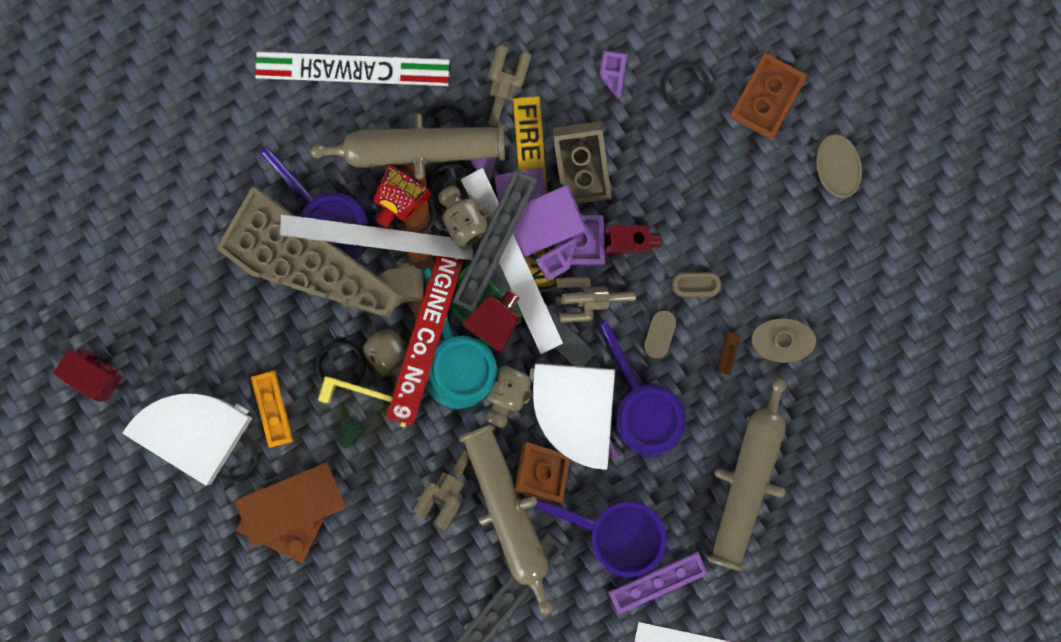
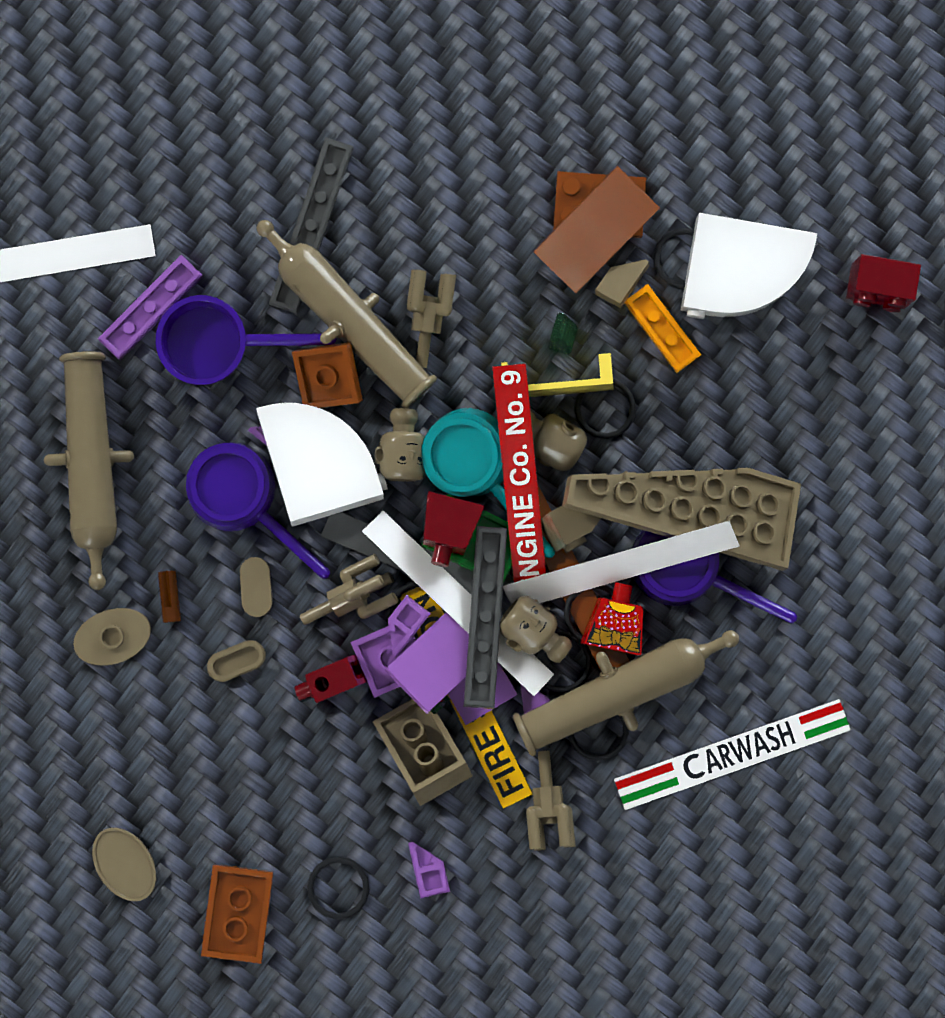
camera: 155 degrees right, 0 degrees up
(288, 457) = (621, 281): none -> dark tan tile

